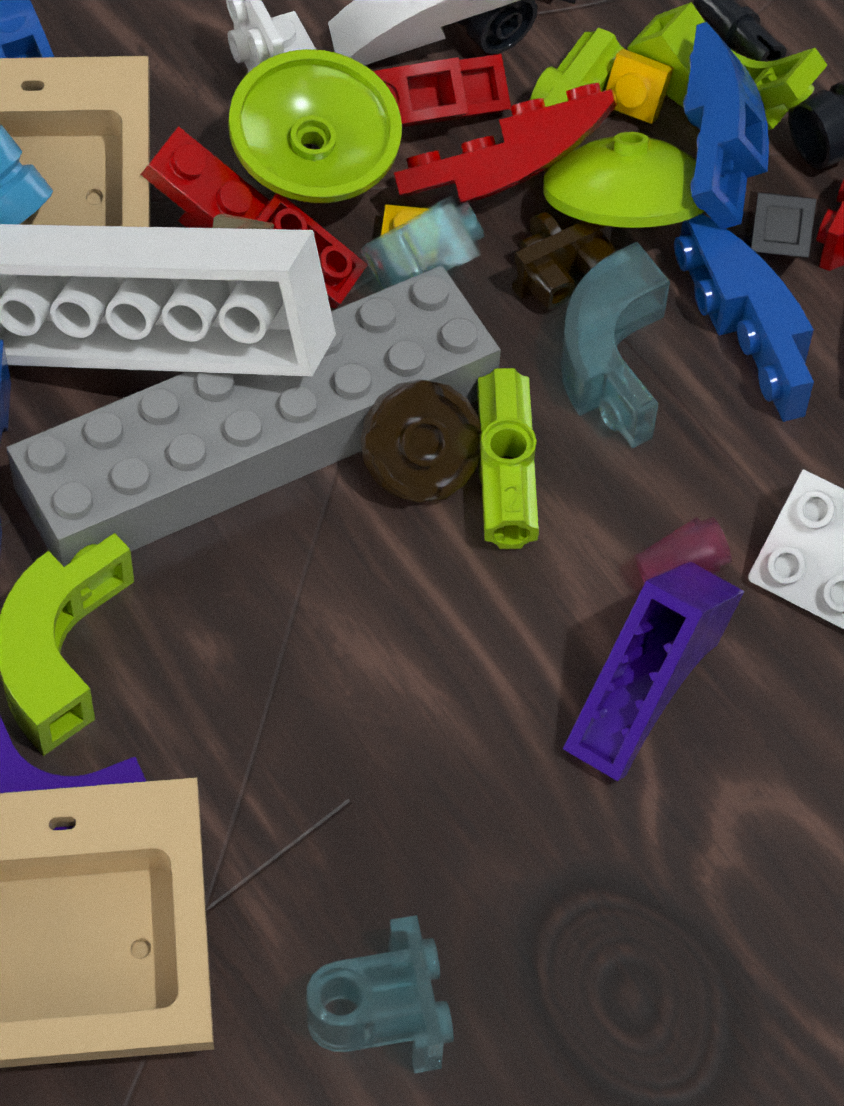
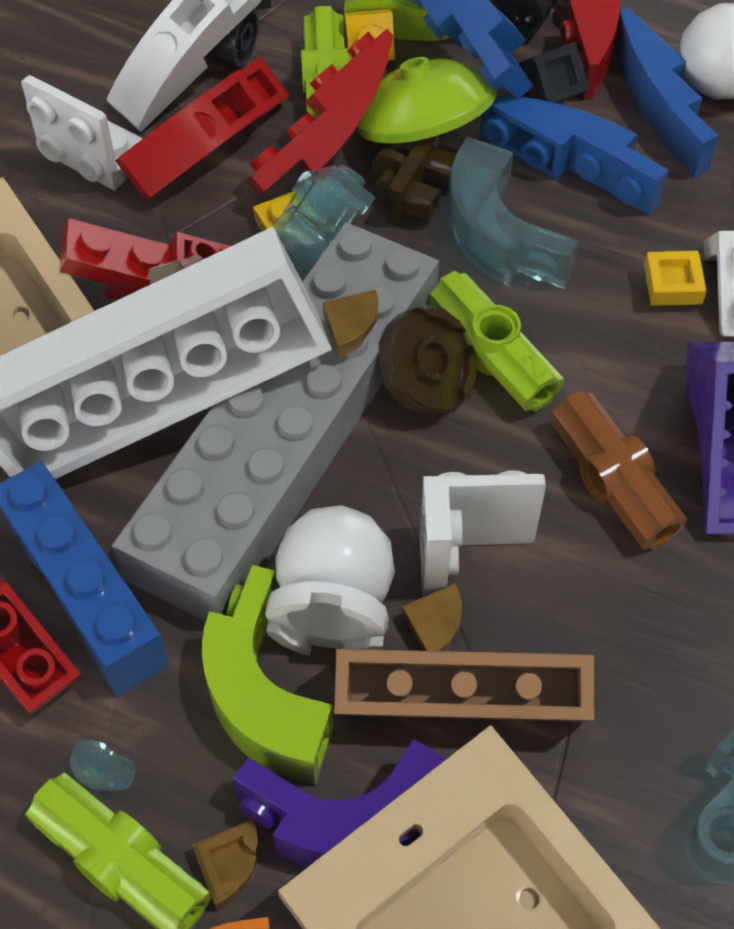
camera: 30 degrees left, 0 degrees up
(176, 583) = (331, 582): none -> white tile
(217, 741) = (464, 685): none -> medium nougat brick
(250, 679) = (435, 618): none -> pearl gold tile
(320, 102) = (176, 150): lime dish -> none
(324, 587) = (474, 512): none -> white bracket
(360, 360) = (351, 320): none -> pearl gold tile
(523, 643) = (618, 470): none -> dark orange piece
(694, 542) = (670, 339): clear pink cone -> none
(741, 495) = (674, 278): none -> yellow plate

